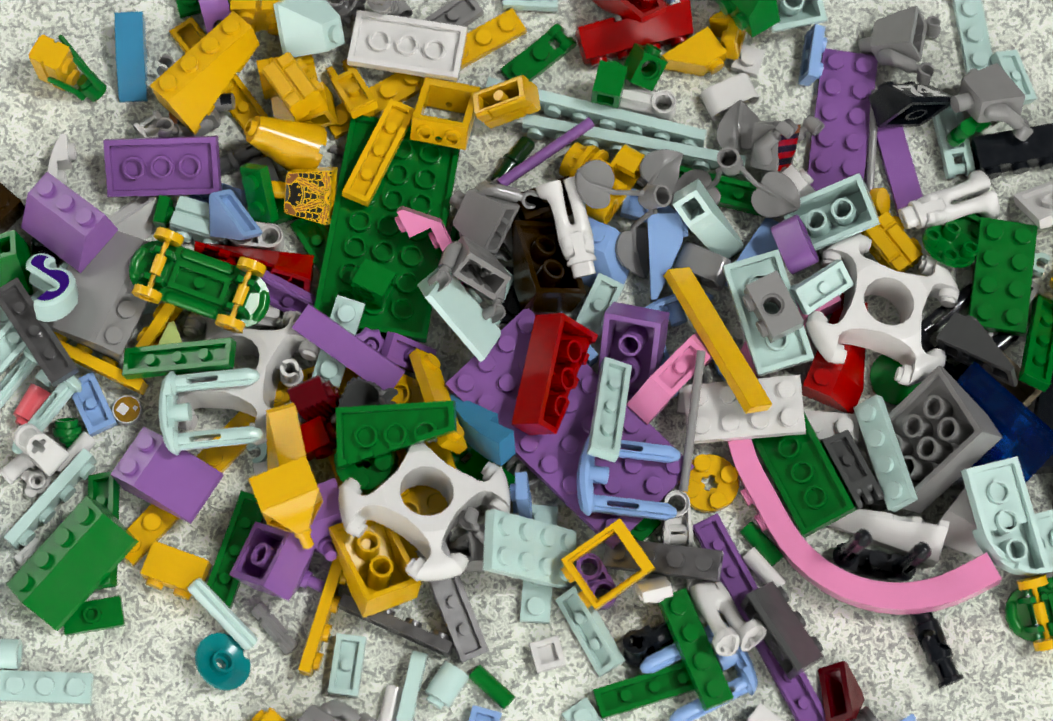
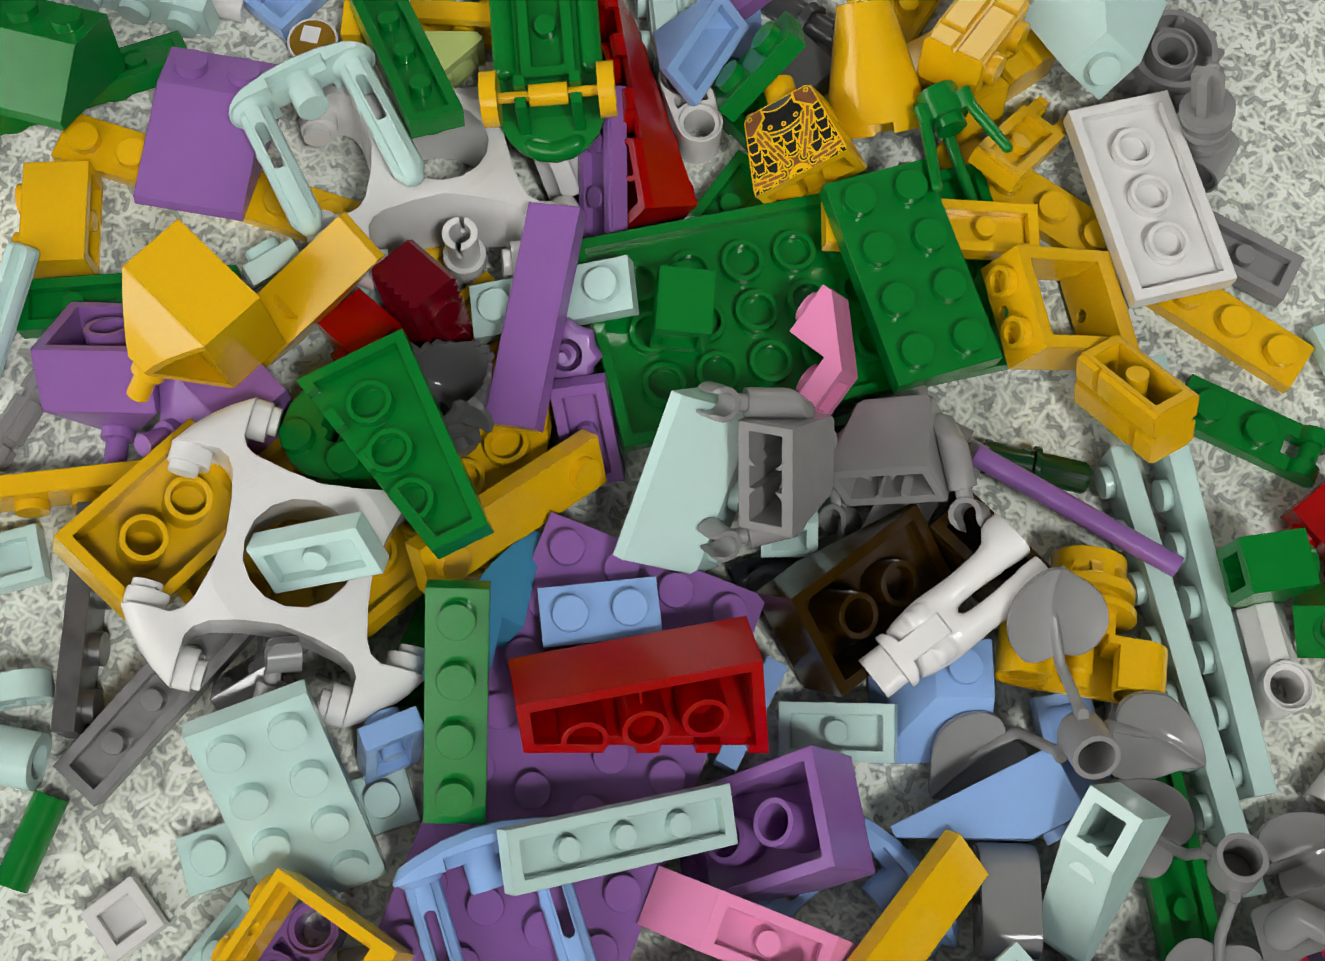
camera: 65 degrees right, 0 degrees up
(252, 465) = (268, 260): none -> light aqua plate
(328, 119) = (943, 111): none -> green plant
(402, 172) = (909, 276): none -> green plate
(431, 481) = (318, 552): none -> light aqua plate
(504, 380) = (598, 611): none -> light blue plate
(523, 450) = (456, 701): none -> green plate

